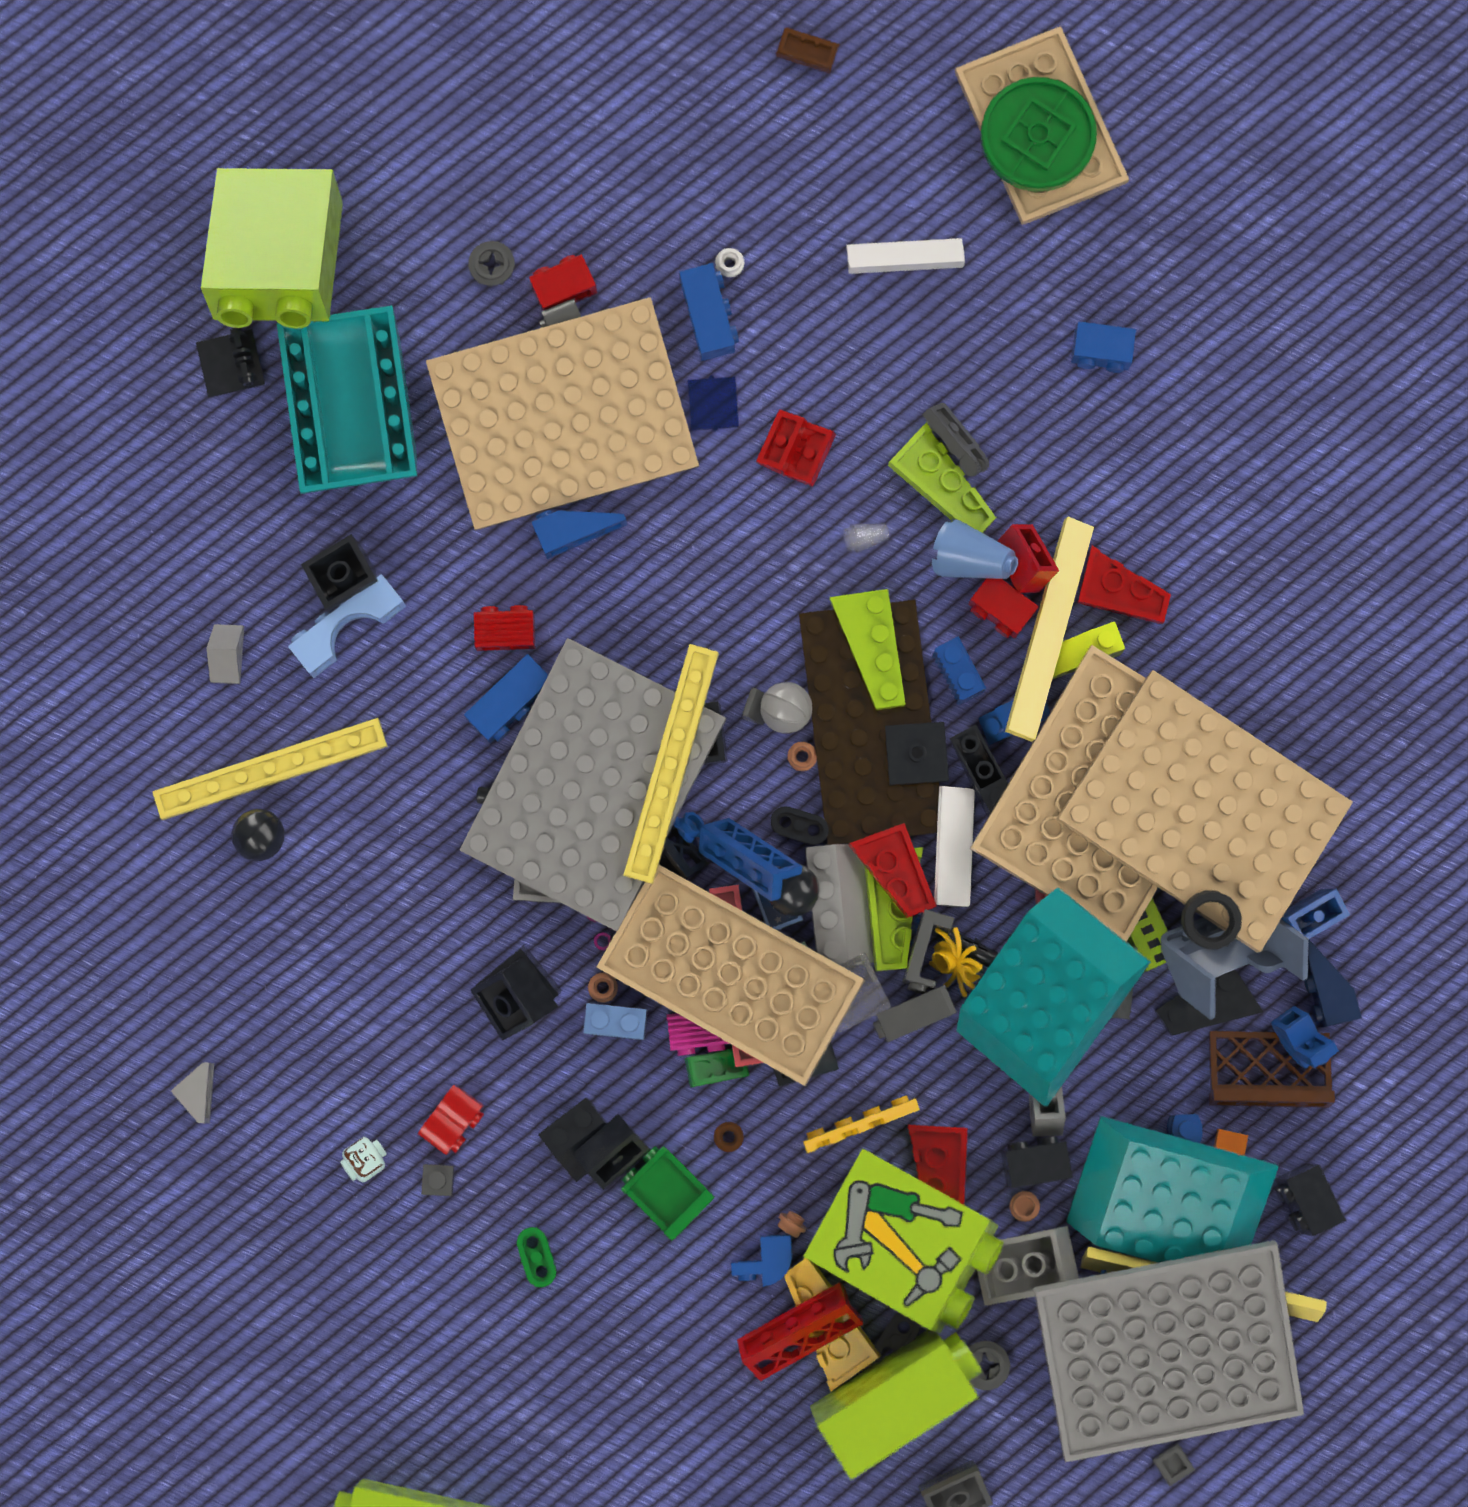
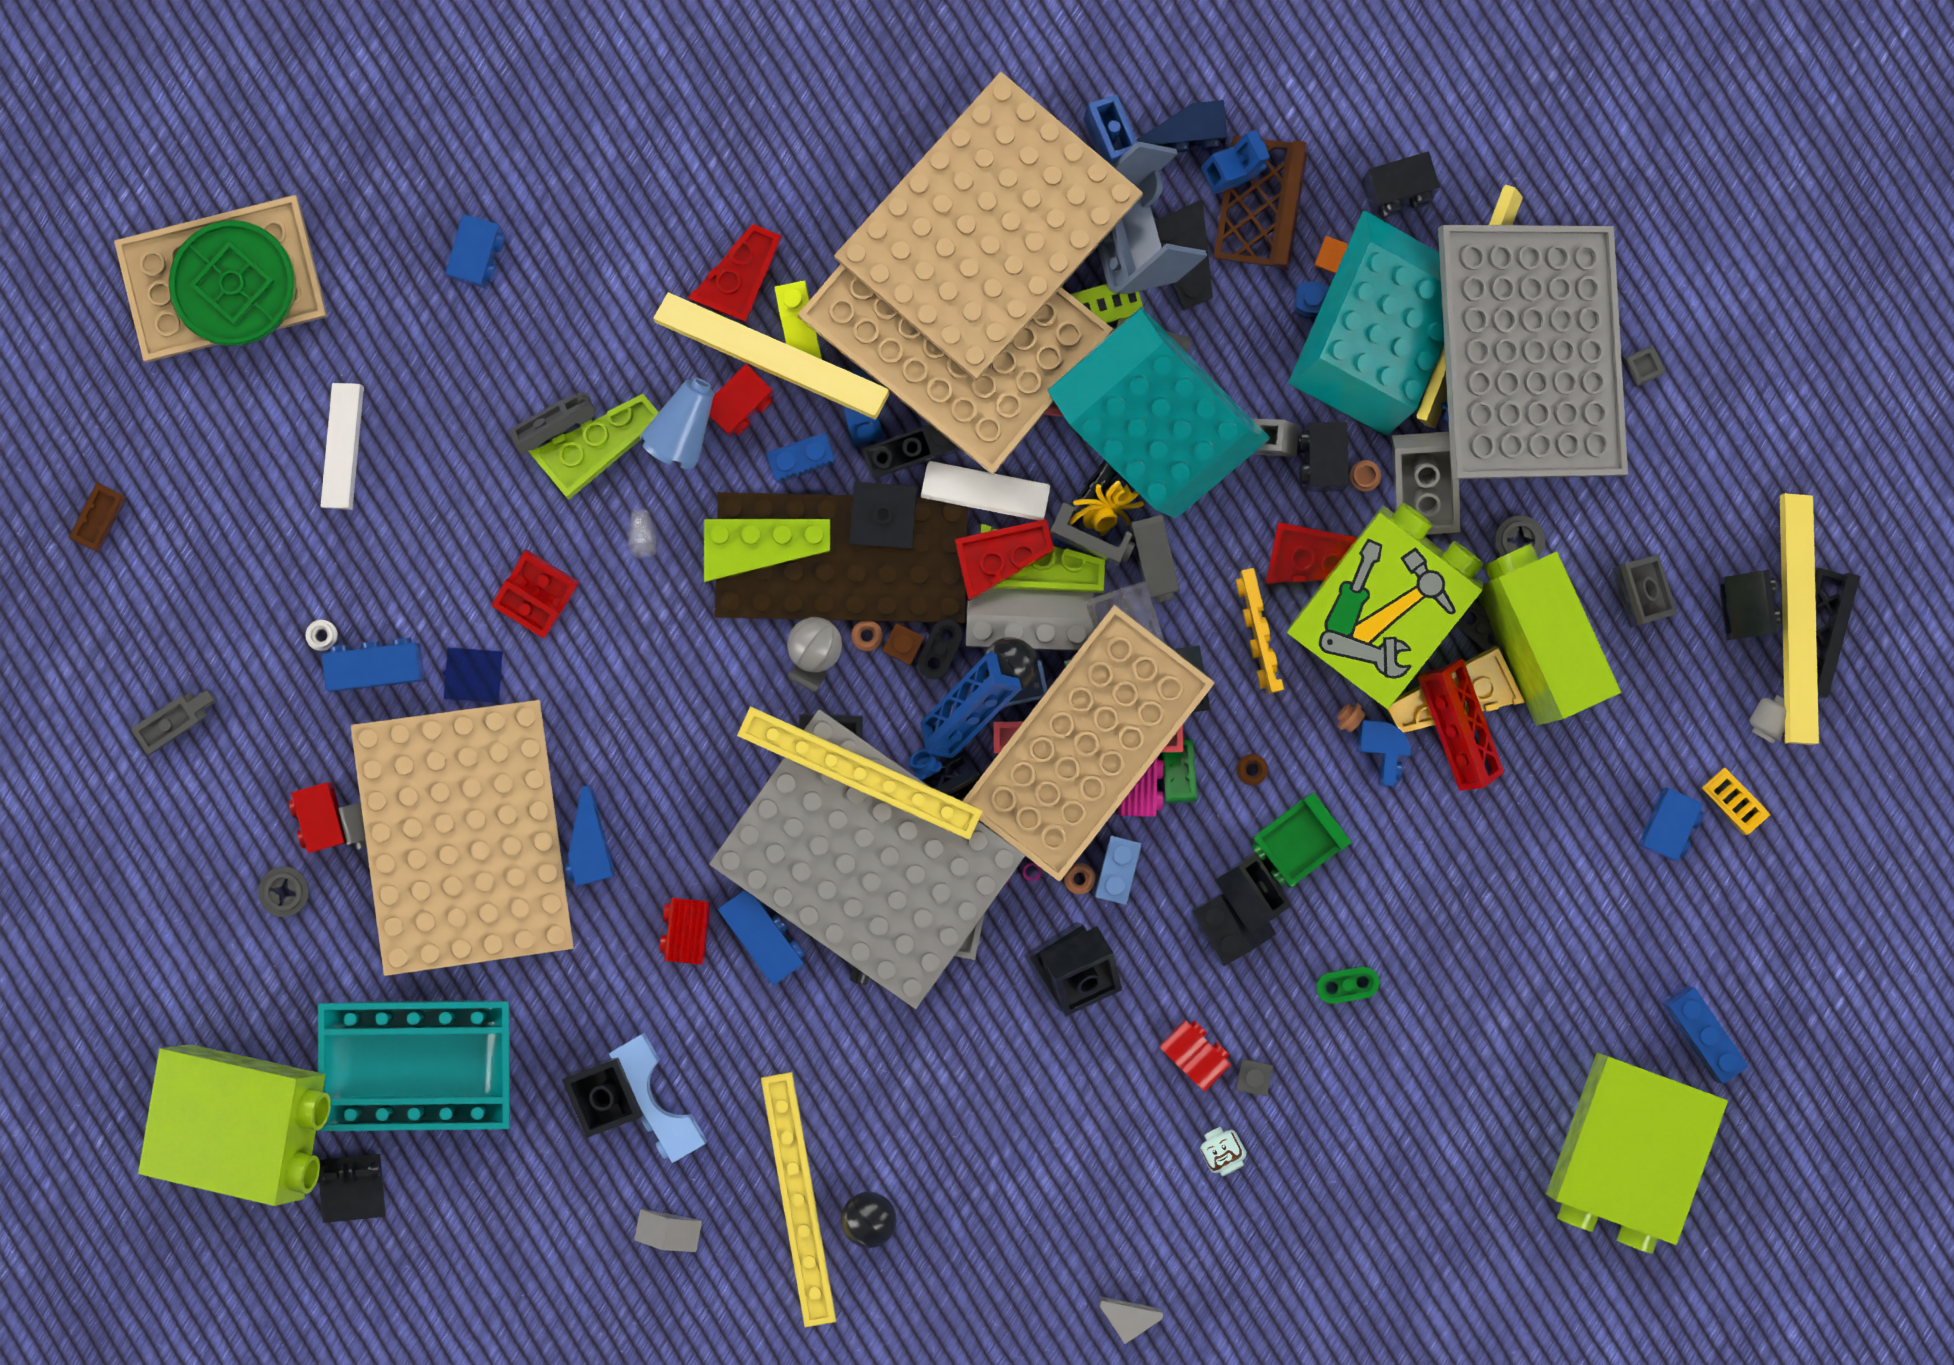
camera: 80 degrees left, 5 degrees up
(632, 143) = (172, 721): none -> dark grey hinge
(798, 790) = (903, 644): none -> reddish brown brick
(1034, 561) = (697, 360): red brick -> none
(1232, 930) = (1124, 224): black tyre -> none

